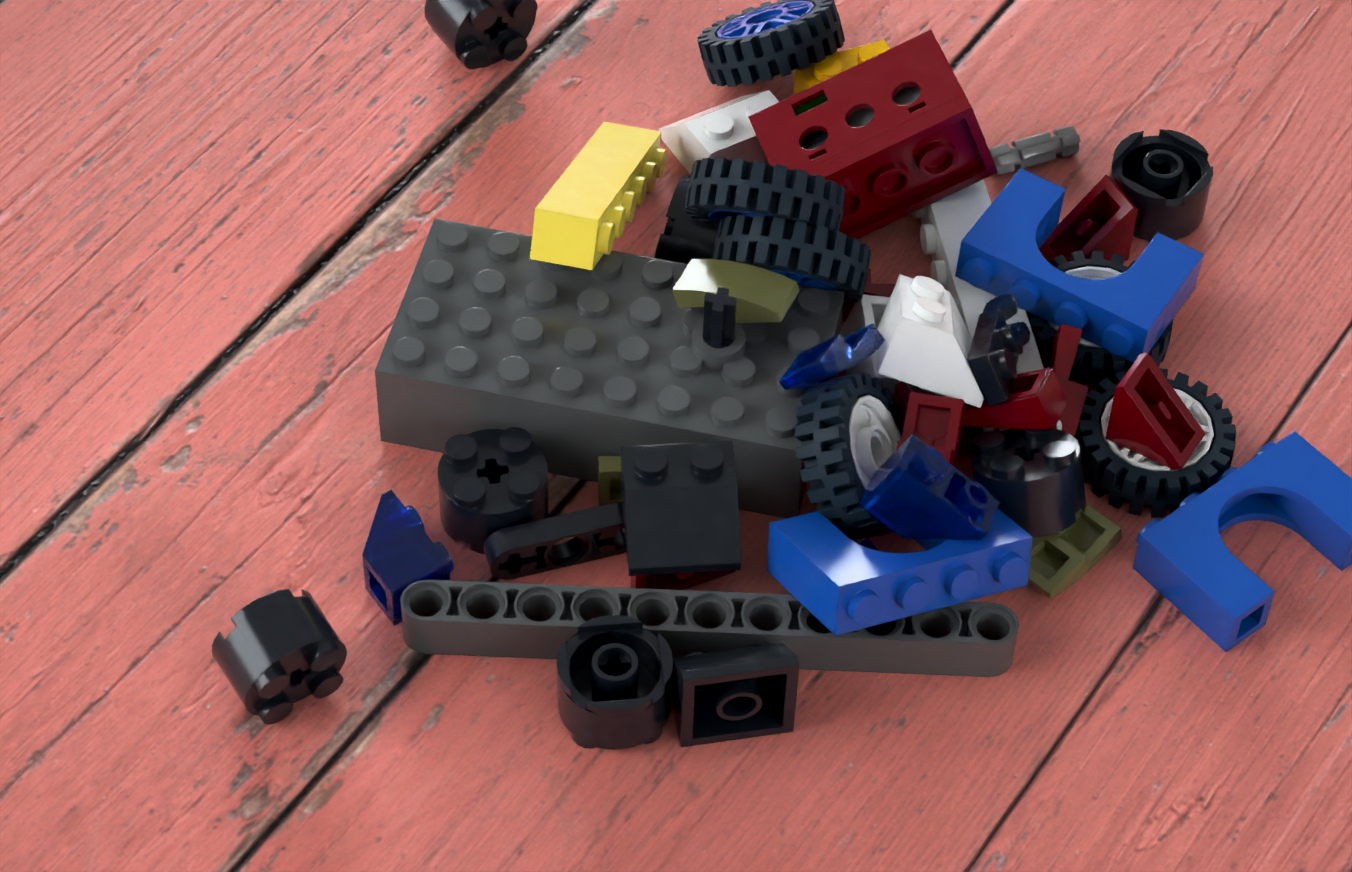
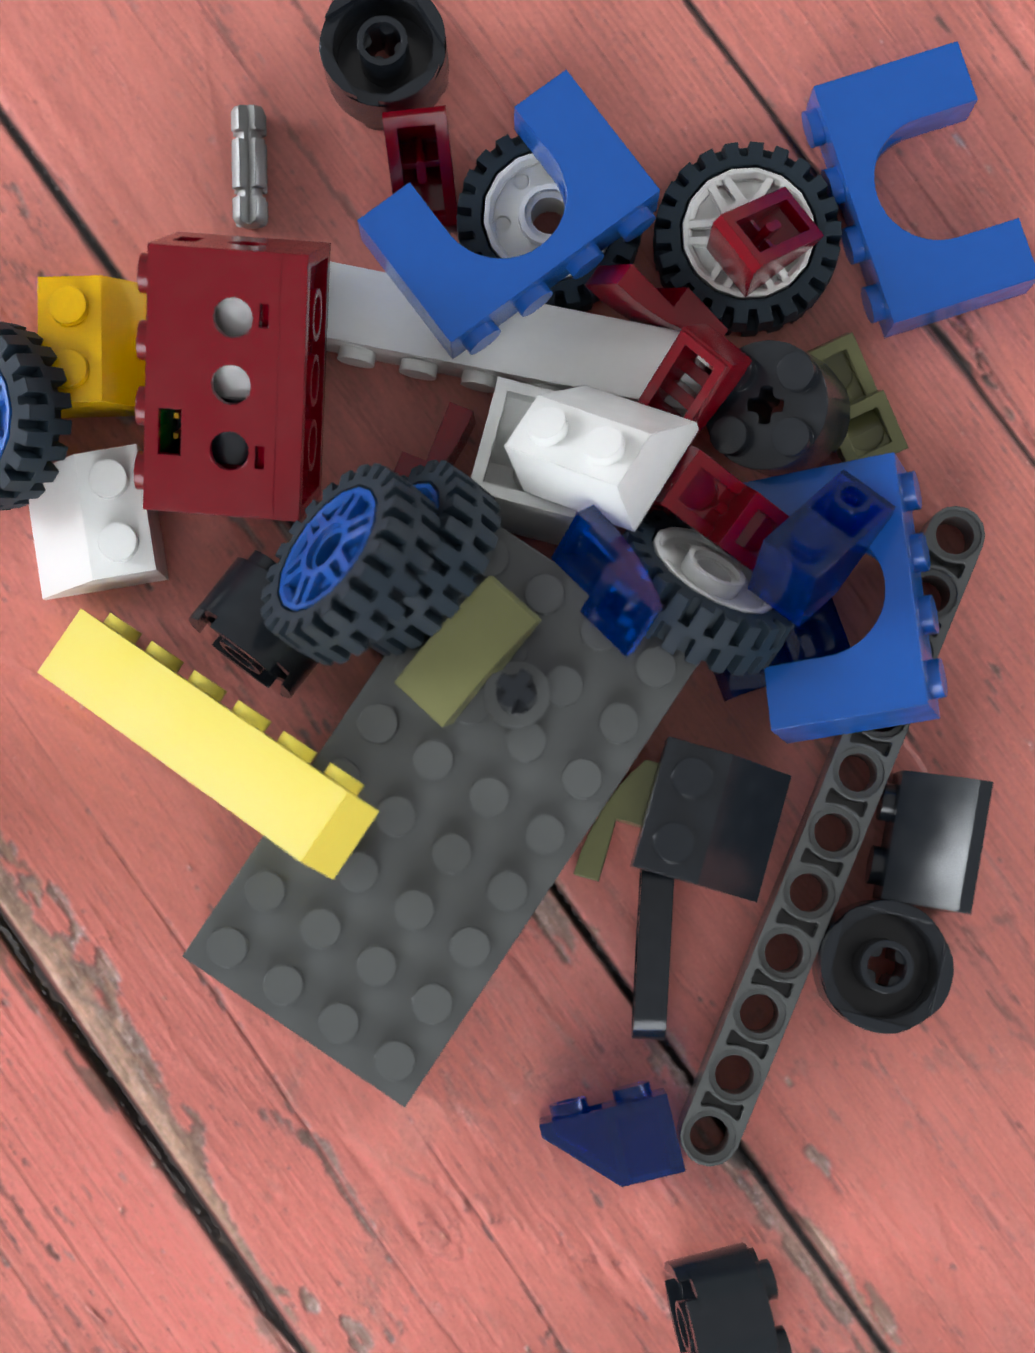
camera: 60 degrees left, 35 degrees up
(491, 484) = (584, 1034): black brick -> none
(997, 348) = (620, 371): black hinge -> none

